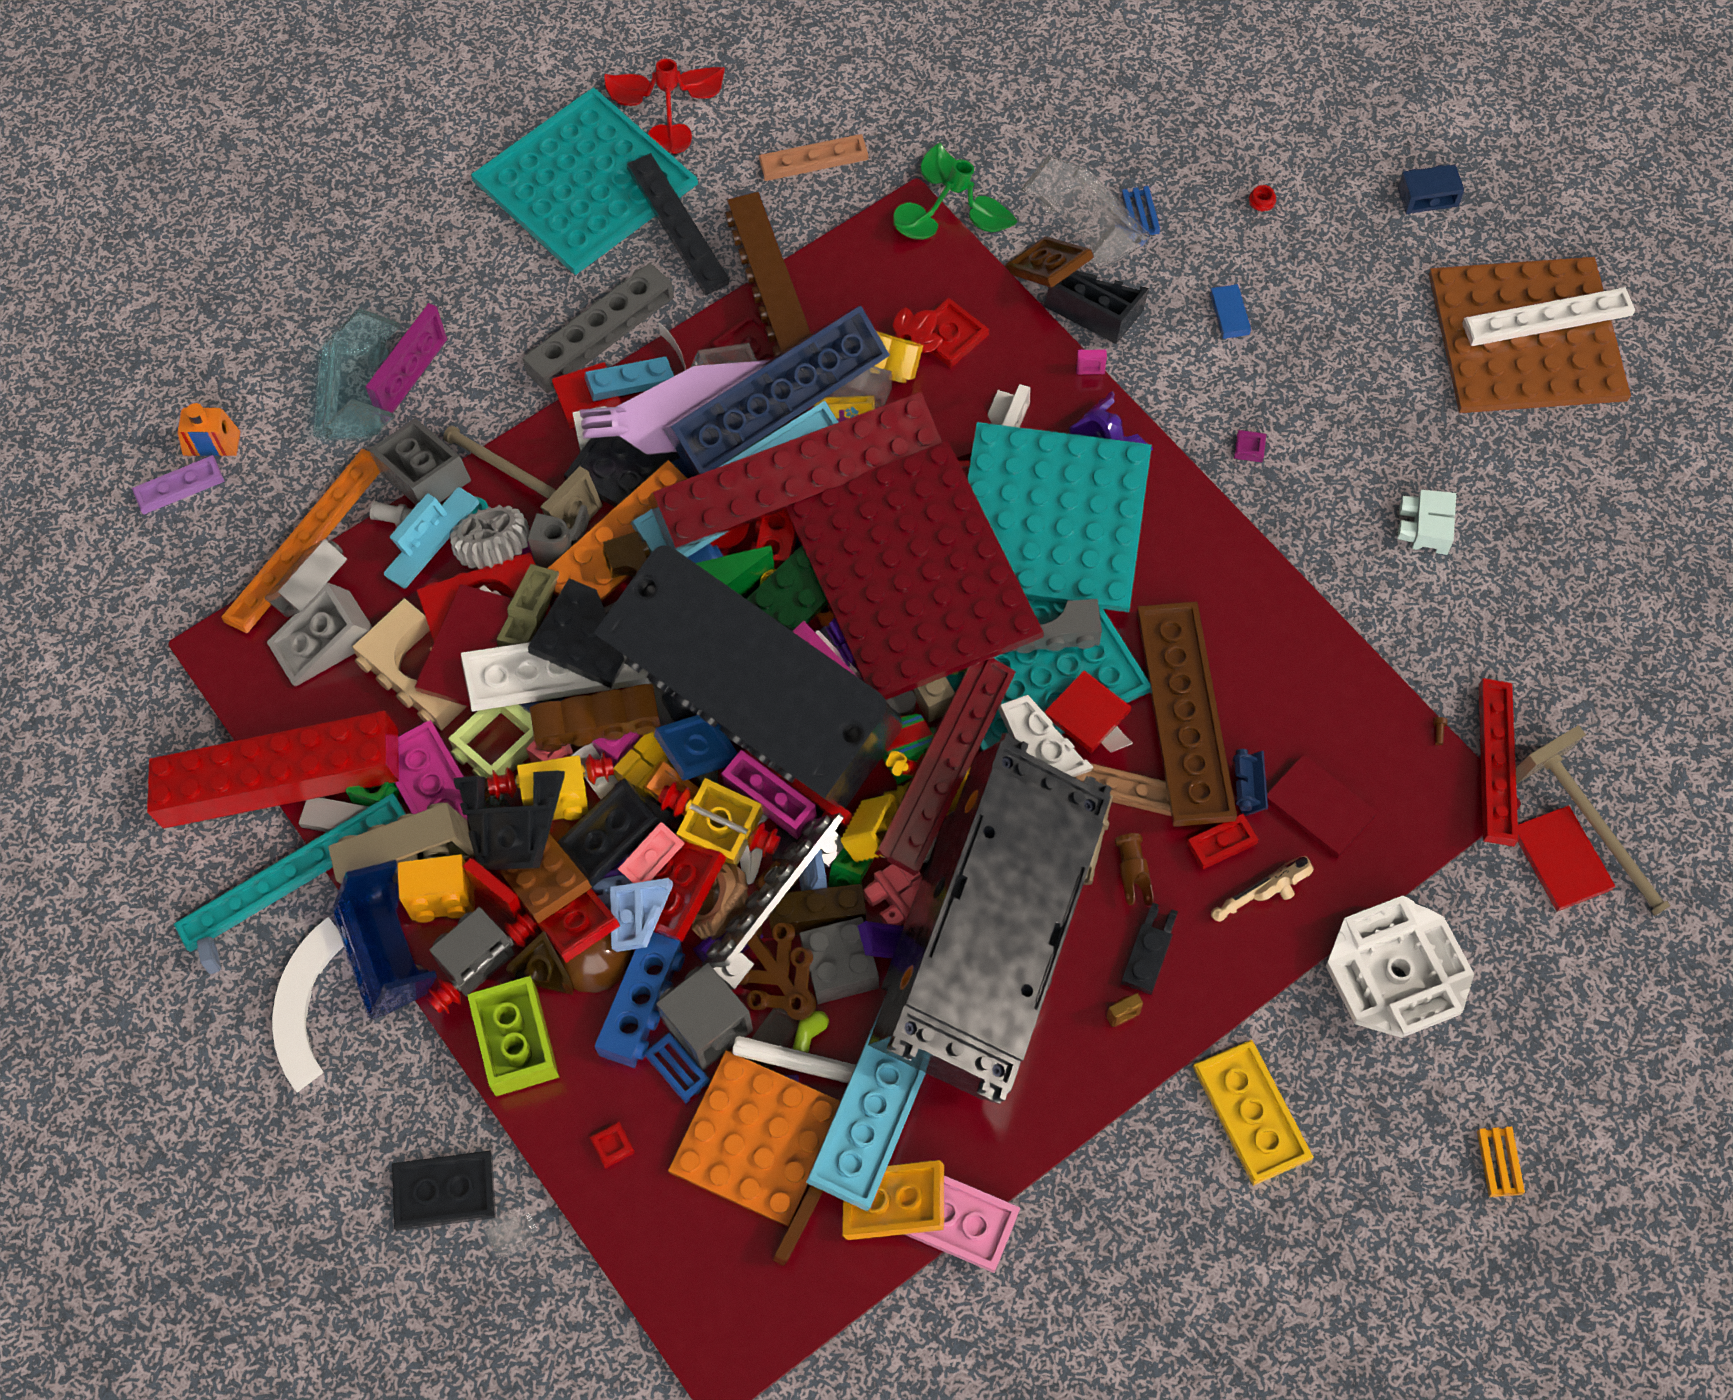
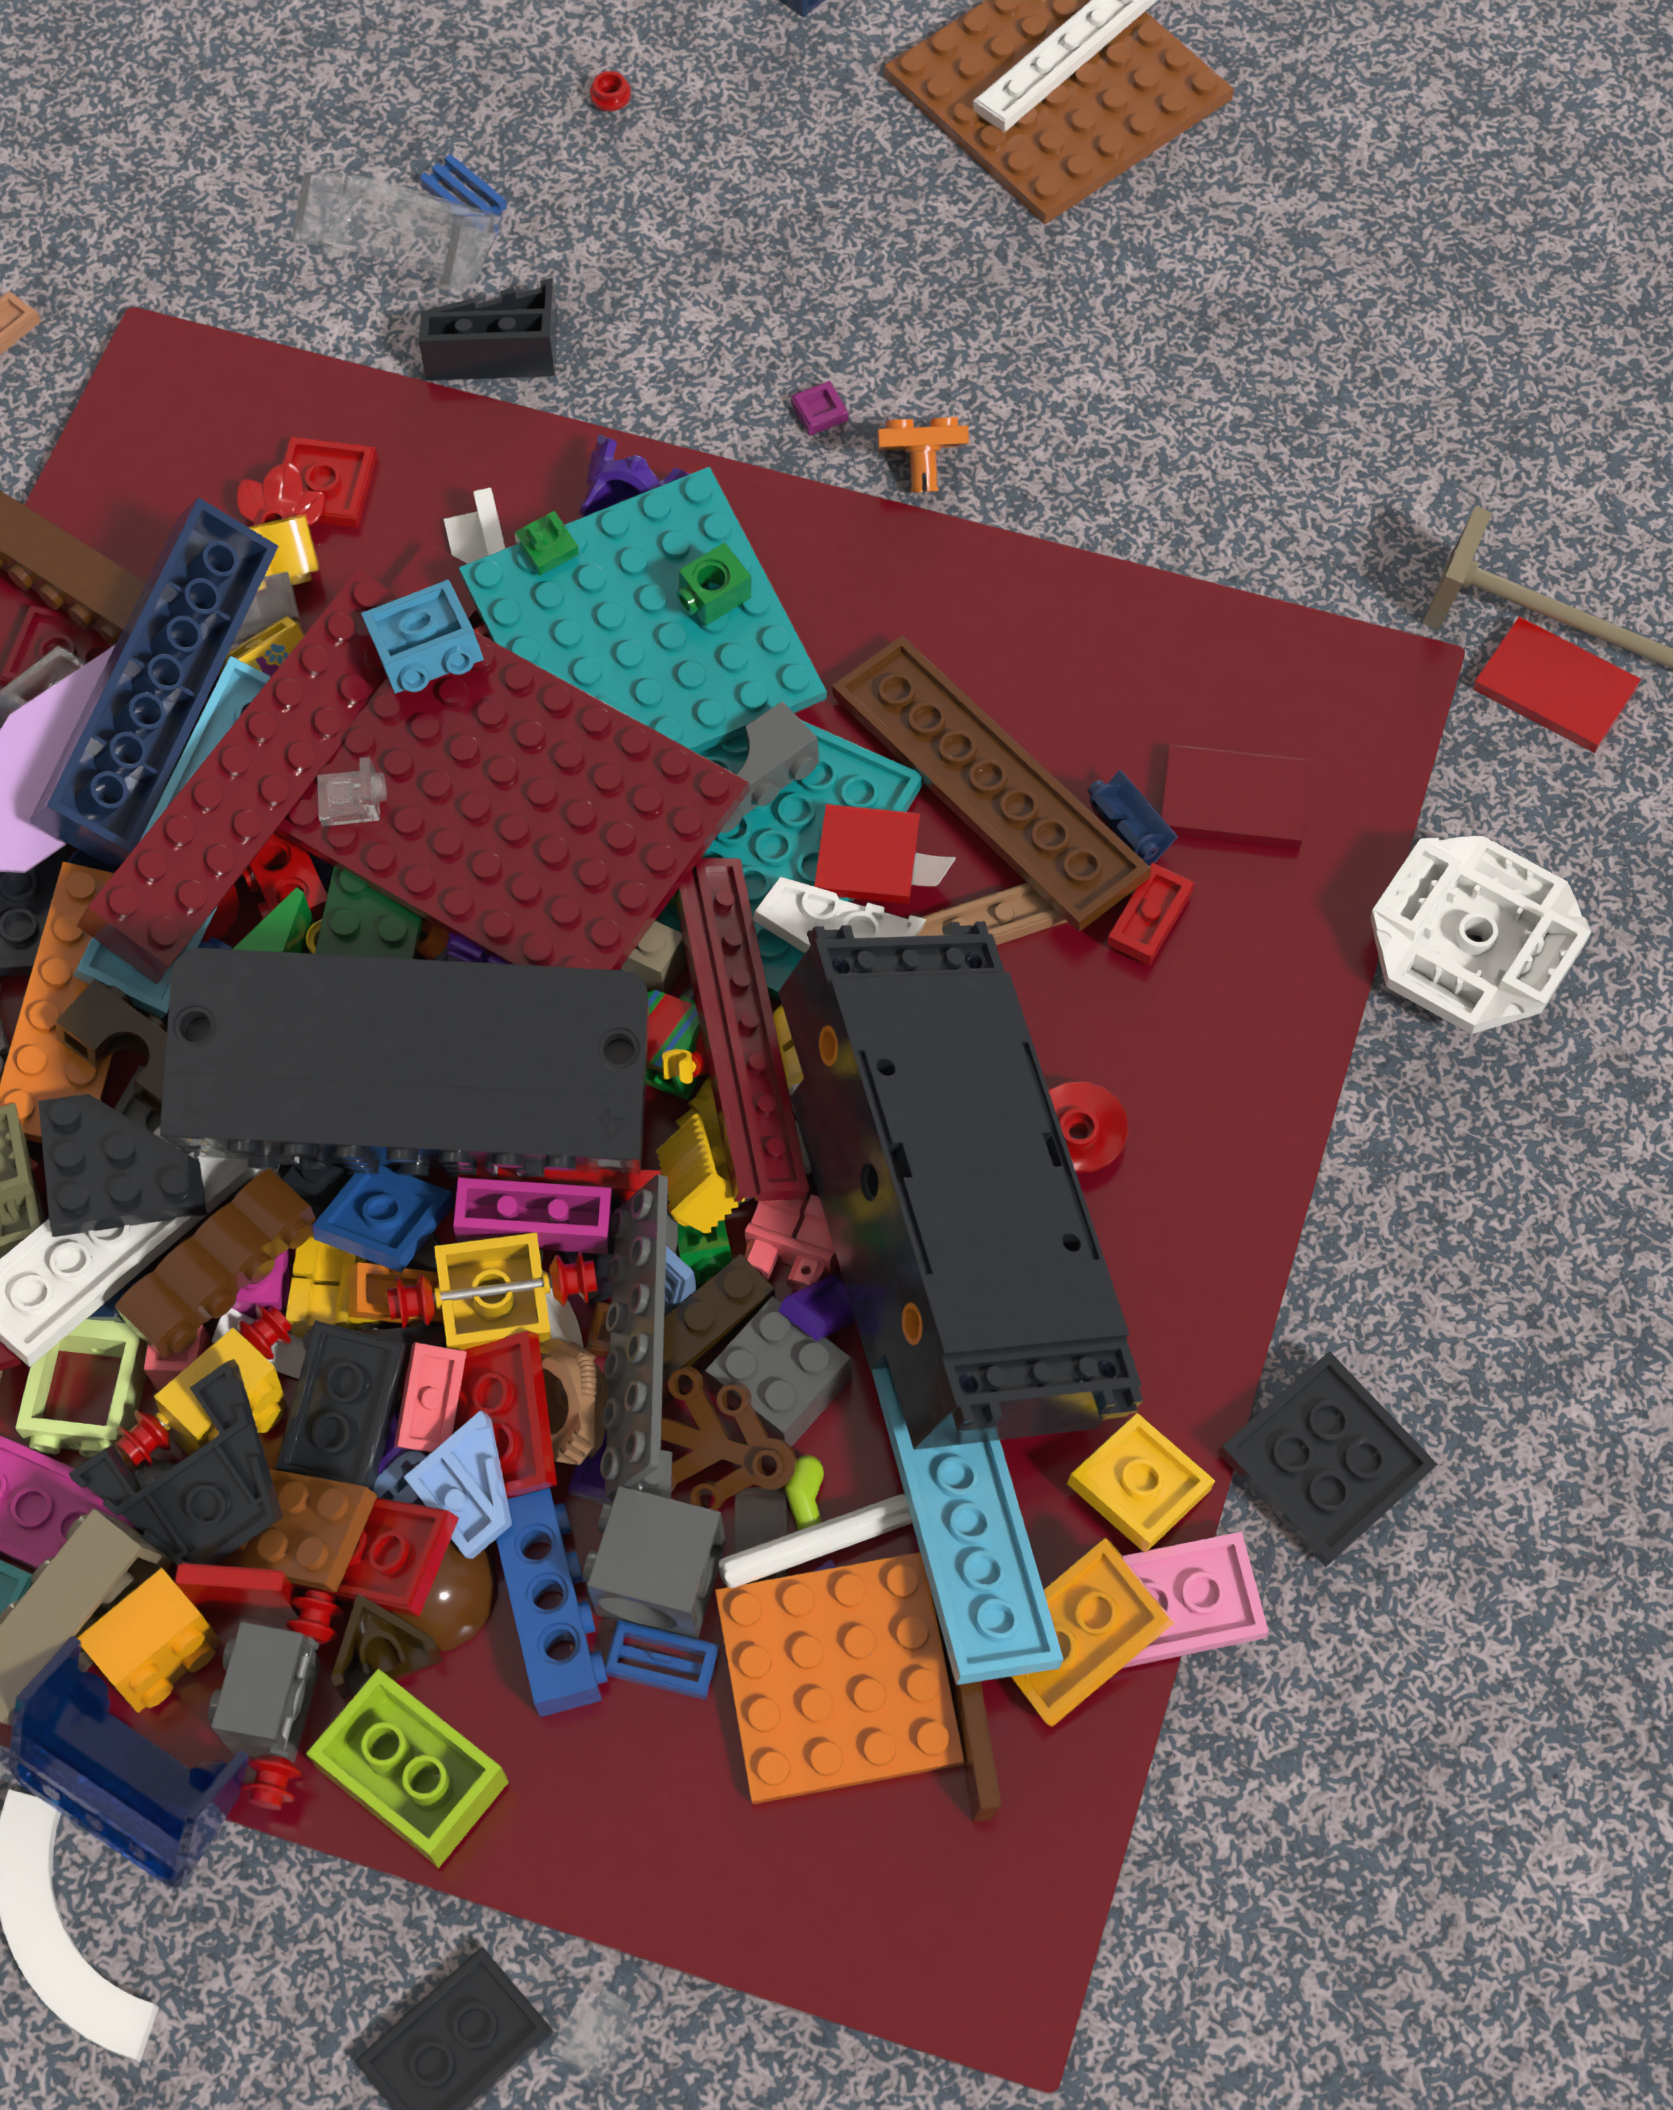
camera: 35 degrees left, 0 degrees up
(612, 1144) = (648, 1821): red tile -> none
(830, 513) = (351, 795): none -> clear bracket
(924, 449) = (423, 637): none -> dark azure plate
(955, 174) = (155, 277): green plant -> none
(986, 1145) = (1140, 1482): none -> yellow plate
(1030, 436) = (546, 543): none -> green tile
(1049, 261) = (395, 315): reddish brown tile -> none
(1091, 361) = (543, 413): dark pink tile -> none
(1099, 1201) = (1327, 1458): none -> black plate
(1100, 920) = (1098, 1115): none -> red dish
(1109, 501) = (716, 567): none -> green brick
(1124, 1010) = (1185, 1197): pearl gold tile -> none
(1134, 868) = (1068, 1016): reddish brown piece -> none
(1149, 952) = (1160, 1108): black hinge -> none
(1230, 311) = (671, 254): blue tile -> none
(1252, 1112) = (1425, 1224): yellow tile -> none
(1268, 886) = (1255, 919): tan piece -> none
(1288, 501) = (922, 445): none -> orange plate
(1432, 520) = (1111, 368): light aqua hips -> none
(1440, 723) = (1302, 609): reddish brown piece -> none
(1498, 762) = (1405, 614): red plate -> none

